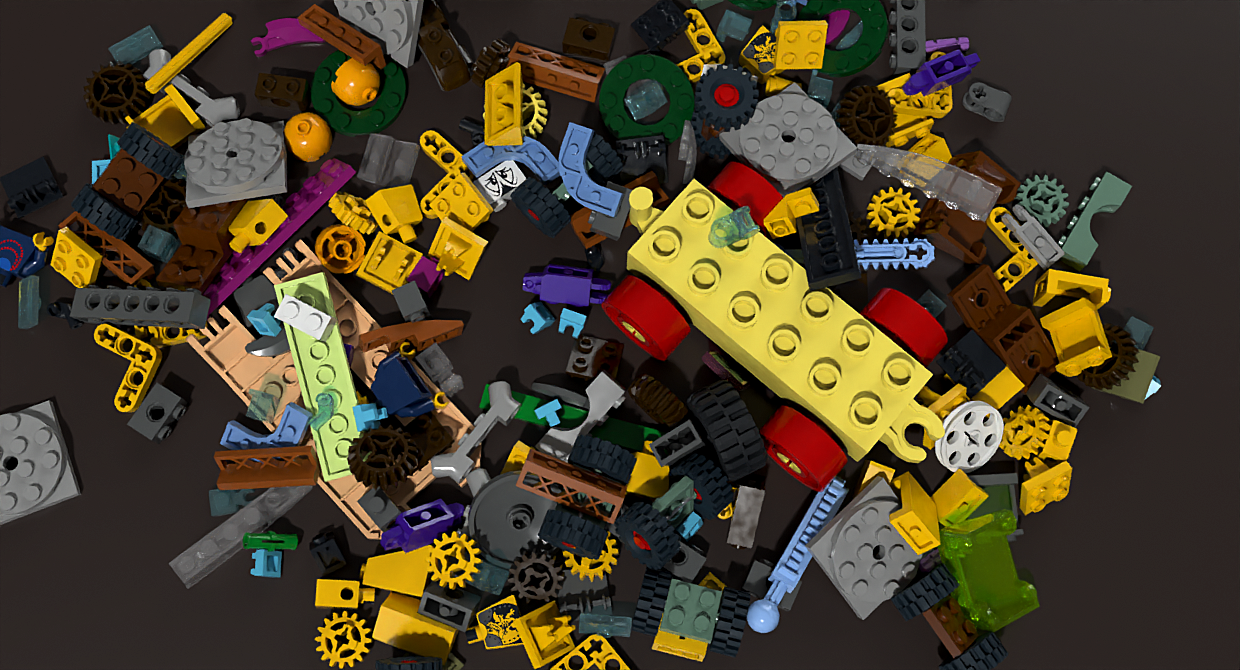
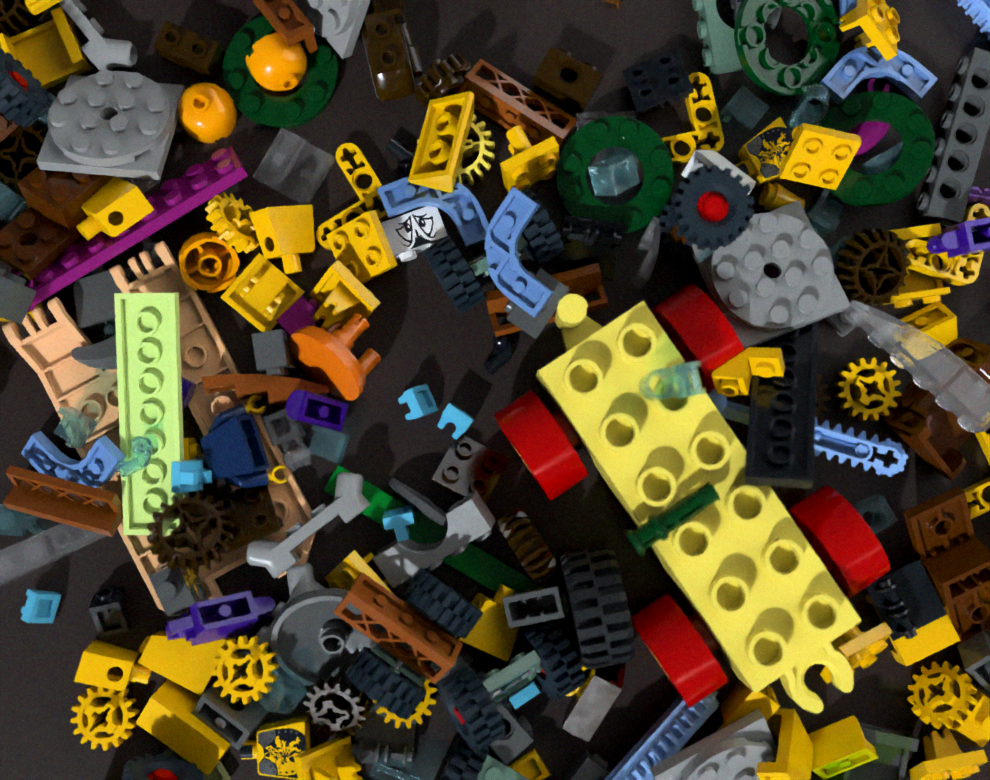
camera: 15 degrees right, 10 degrees up
(254, 541) = (47, 584): green pin -> none
(264, 322) = (98, 329): medium azure tile -> none
(305, 318) = (139, 345): white brick -> none
(458, 340) = (316, 409): none -> dark purple brick
(459, 297) = (328, 358): none -> orange piece
(473, 368) = (329, 443): none -> clear light blue panel
(566, 285) = (461, 376): dark purple hinge -> none
(576, 107) = (528, 161): none -> yellow plate
(725, 370) = (613, 525): tile -> none
(755, 341) = (659, 526): none -> dark green pin
(978, 432) = (894, 672): white wedge -> none

